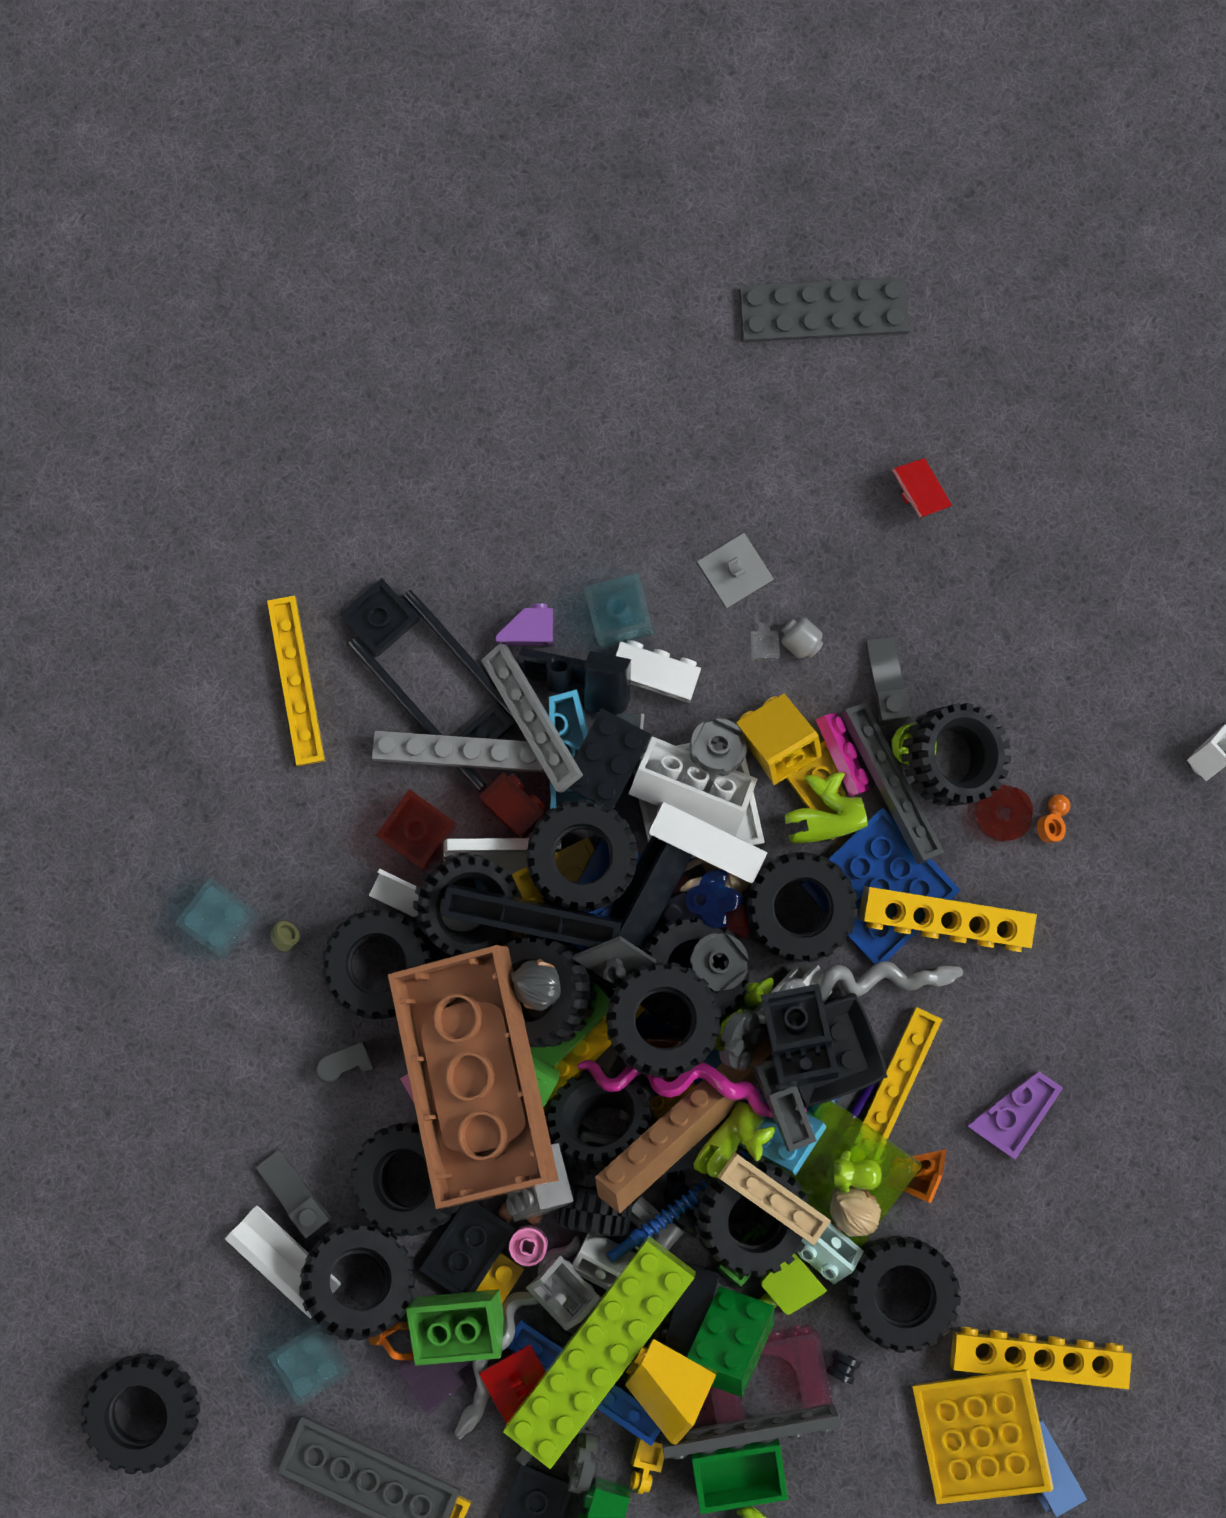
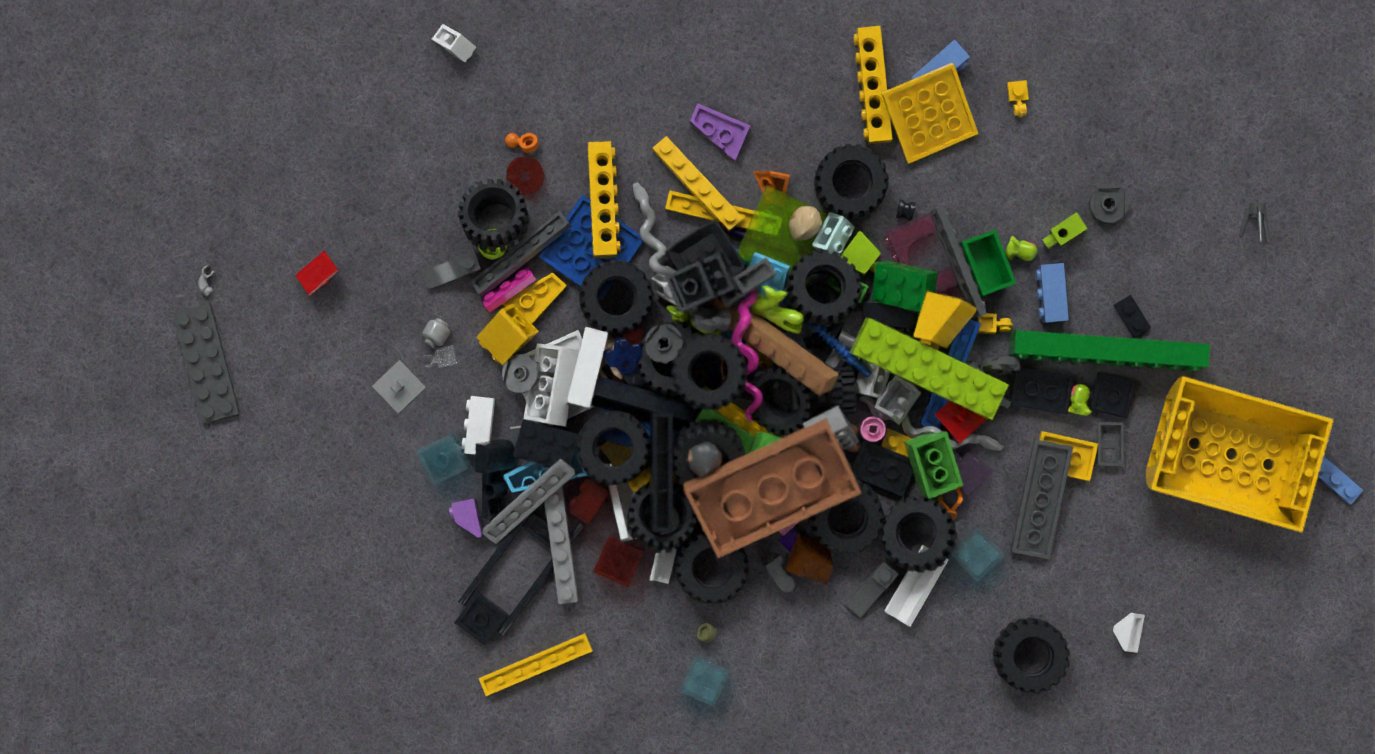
camera: 95 degrees left, 5 degrees up
(356, 1110) = (810, 559): none -> reddish brown slope
(390, 1090) = (788, 539): none -> dark purple slope
(614, 959) = (677, 412): dark grey piece -> none
(774, 1198) = (808, 277): tan plate -> none
(849, 814) = (559, 292): lime piece -> none
(858, 1174) = (781, 224): lime animal -> none
(940, 328) = (202, 283): none -> light grey arm
(943, 1062) = (697, 184): none -> yellow plate

